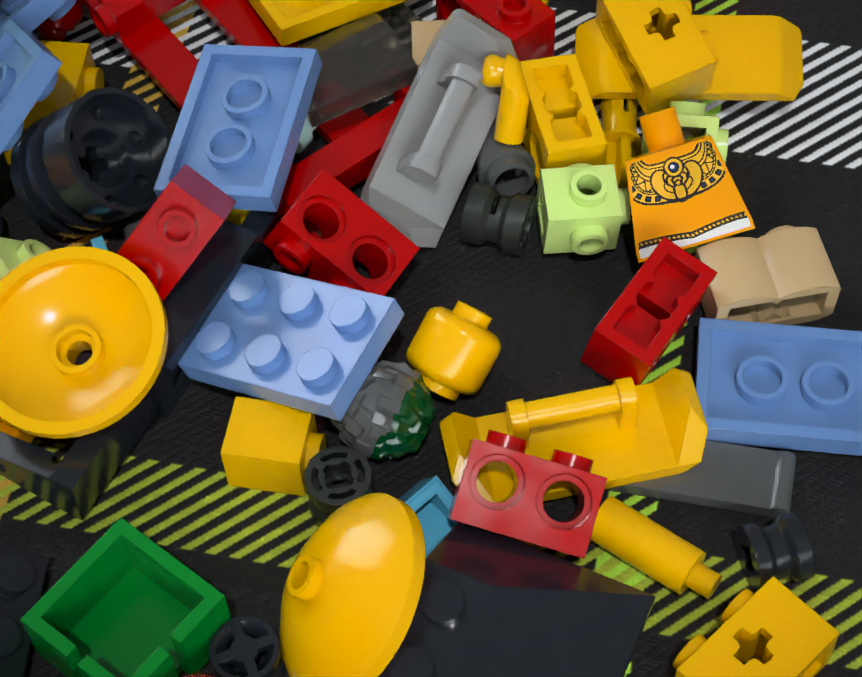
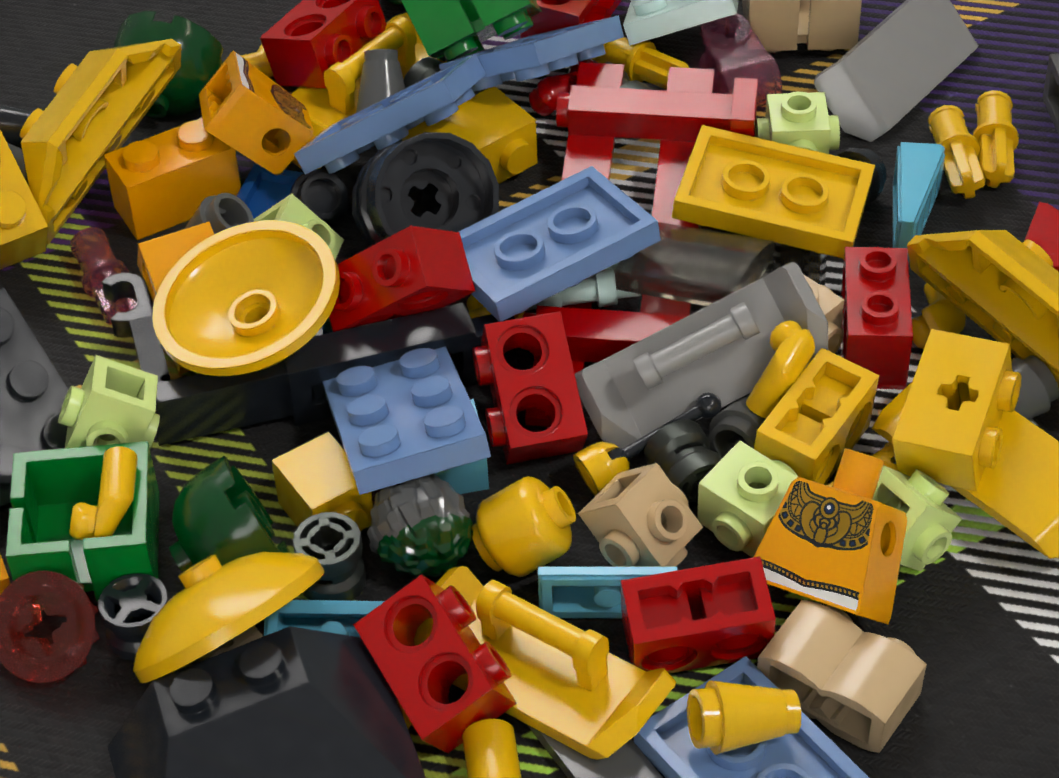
camera: 45 degrees right, 10 degrees down
(53, 519) = (111, 406): none -> yellowish green brick
(158, 585) = (114, 499): none -> yellow arm
(245, 535) = (220, 517): none -> dark green cylinder
(443, 263) = (604, 460): none -> hinge
(526, 280) = (641, 519): none -> tan brick
(549, 350) = (587, 590): none -> medium azure slope
(761, 359) = (740, 715): none -> yellow cone

